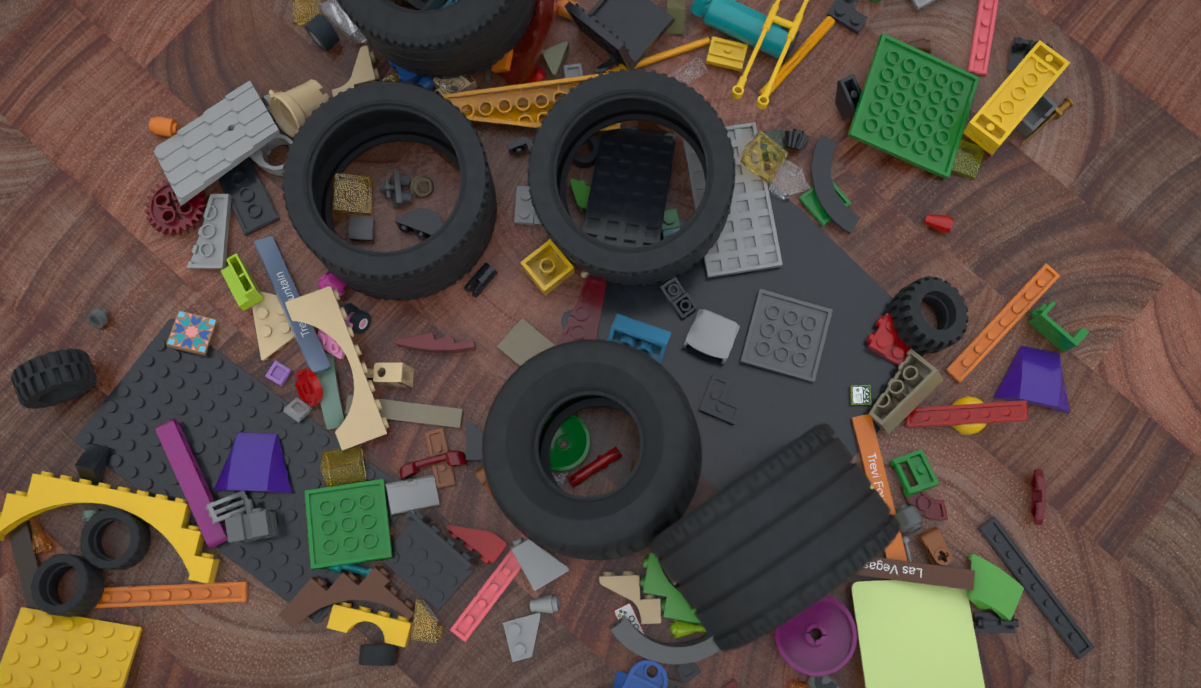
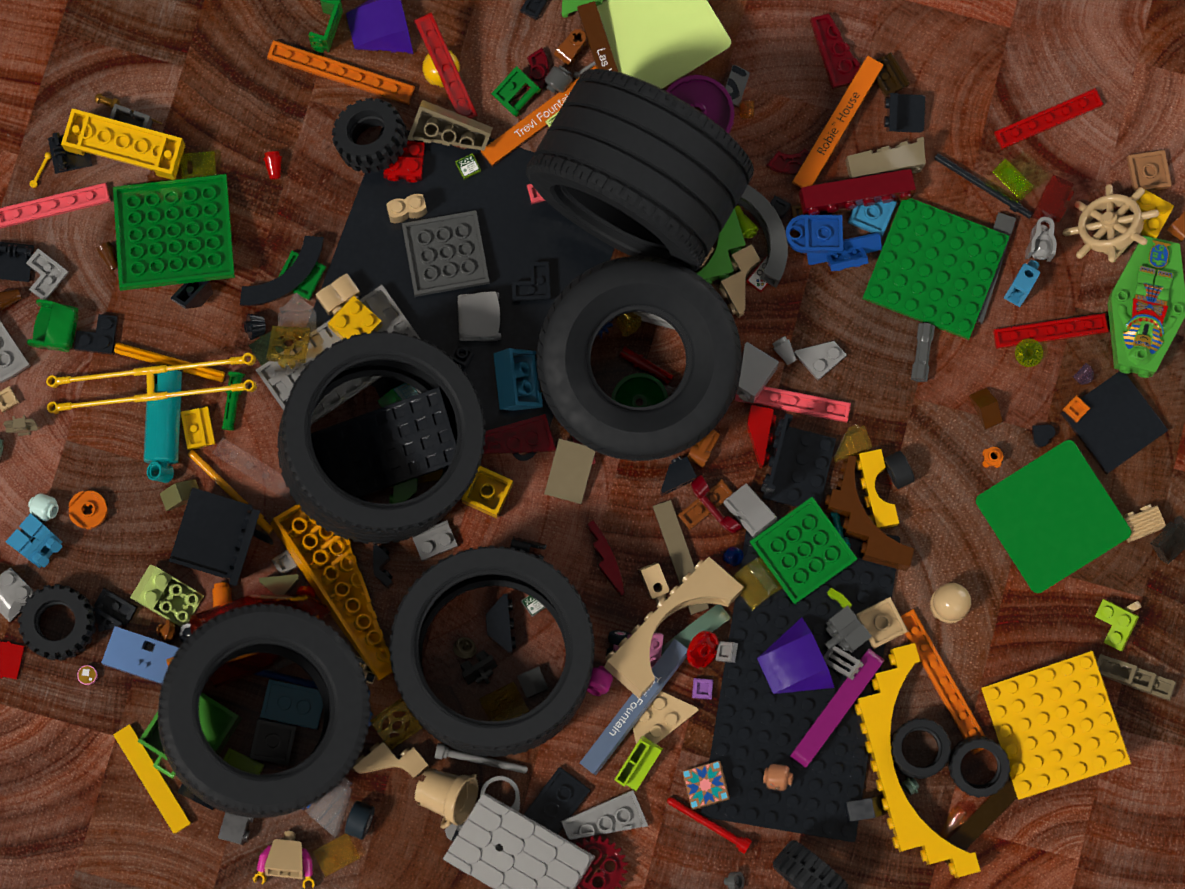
camera: 120 degrees left, 0 degrees up
(127, 340) = (741, 843): none -> red piece
(161, 397) = (778, 777): none -> nougat head
(229, 638) = (950, 603): none -> tan tile
(247, 564) = (882, 622): none -> tan tile
(288, 535) = (833, 594): none -> lime tile
(380, 458) = (733, 556): none -> clear blue tile
(747, 98) = (232, 401): none -> green pin
(755, 221) = (354, 319): none -> yellow brick
(791, 223) = (337, 294): none -> tan brick
(844, 315) = (410, 207): none -> tan brick
(1012, 17) = (33, 183): none -> yellow hinge

